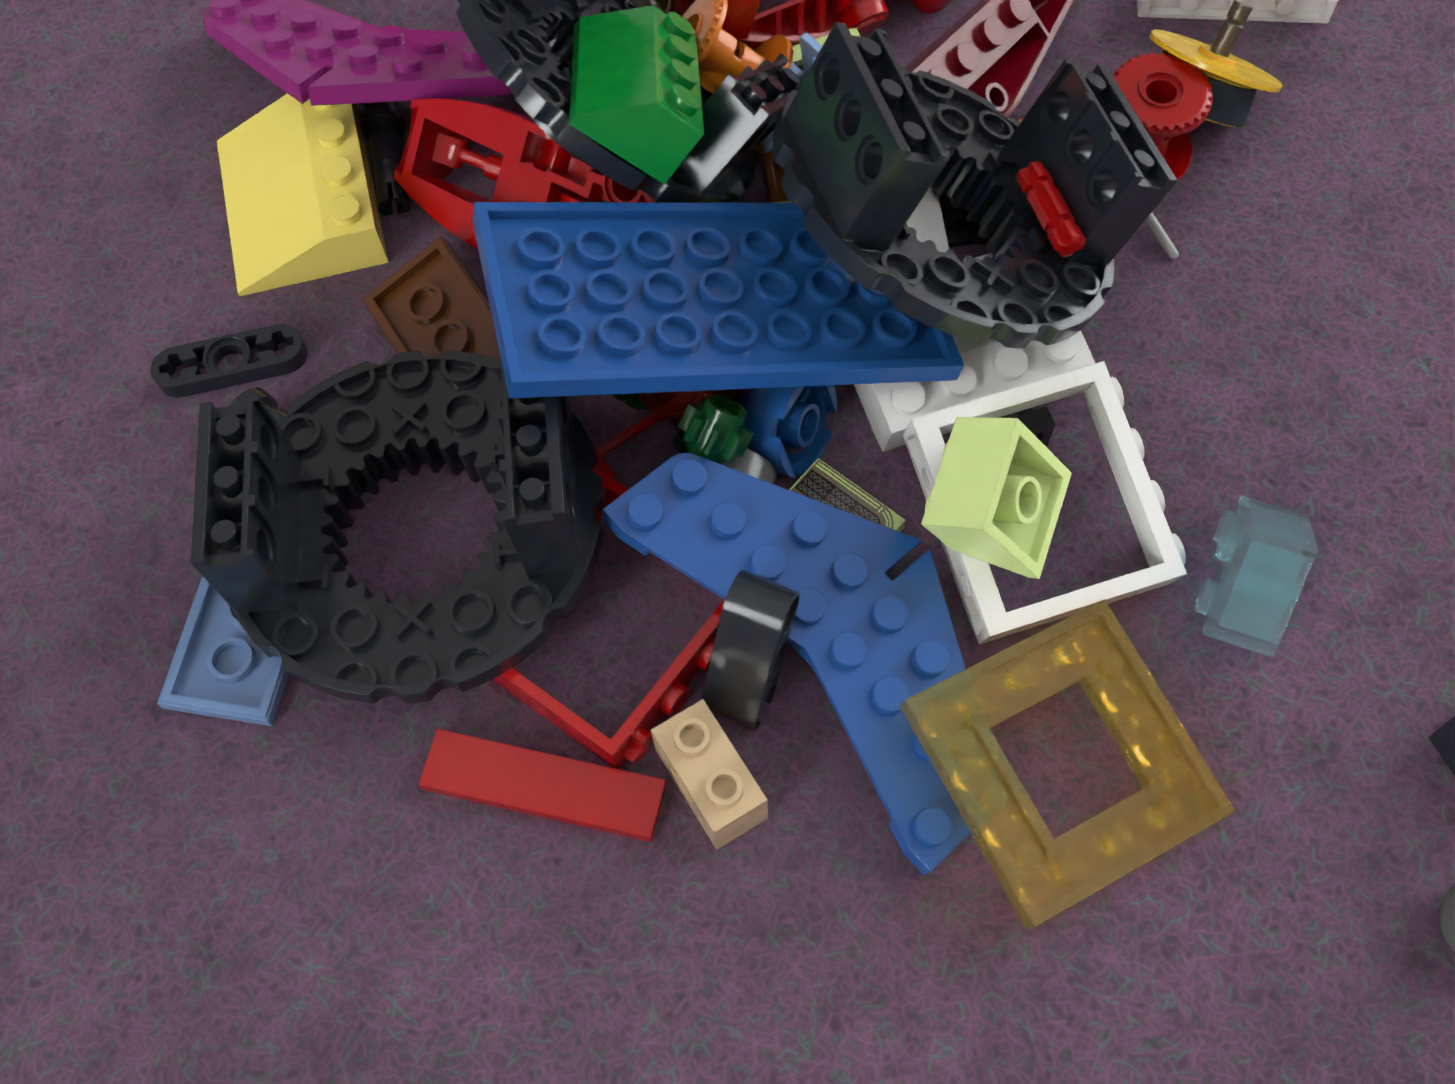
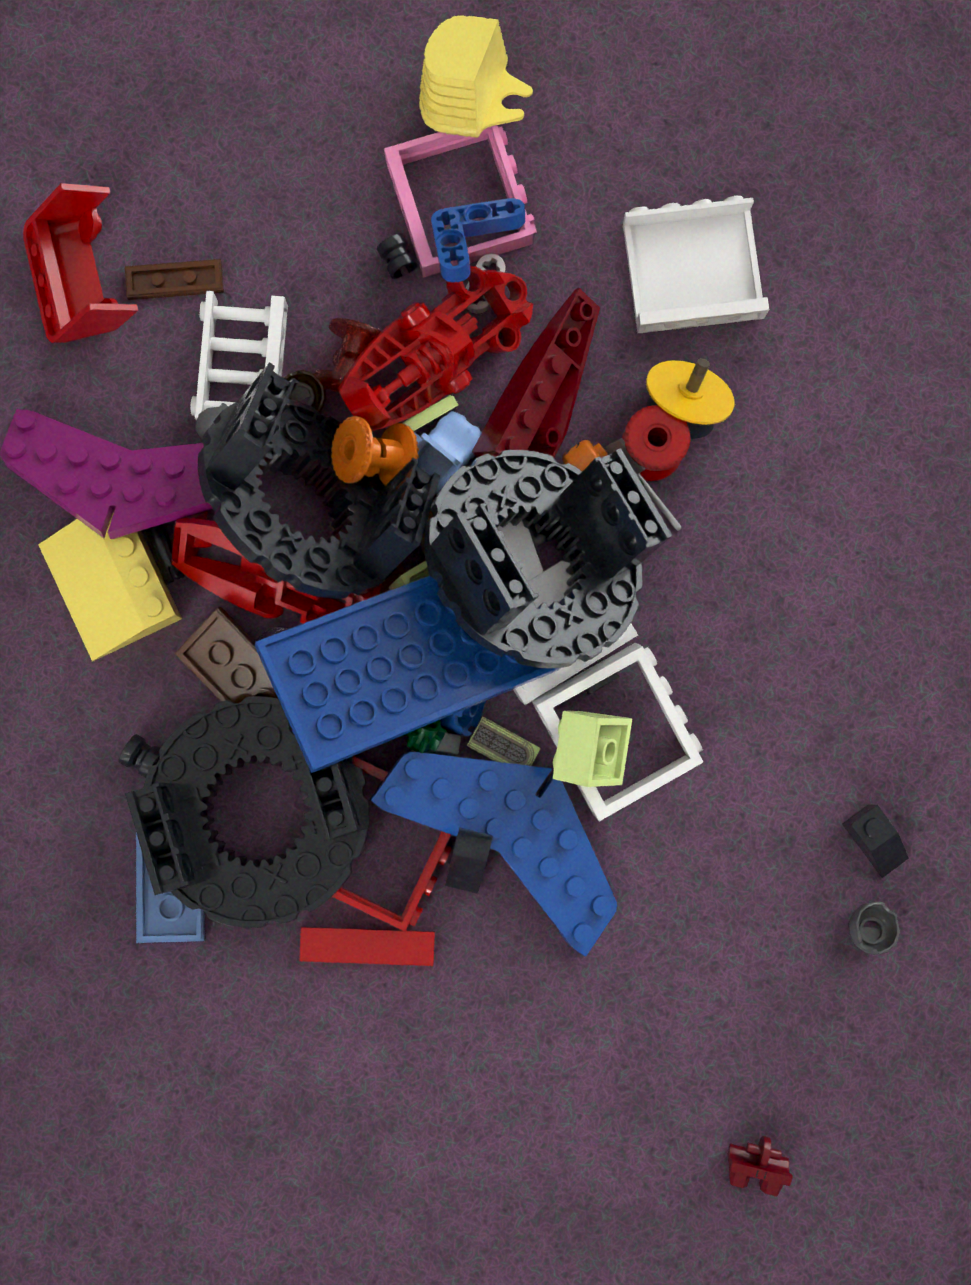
camera: 20 degrees left, 20 degrees up
(214, 349) = (77, 714): black beam -> none
(638, 87) = (331, 523): green slope -> none
(710, 774) = (459, 928): tan brick -> none
(1032, 867) = (710, 890): clear yellow plate -> none
(1050, 209) = (599, 549): red axle -> none
(1260, 577) = (742, 751): clear light blue brick -> none

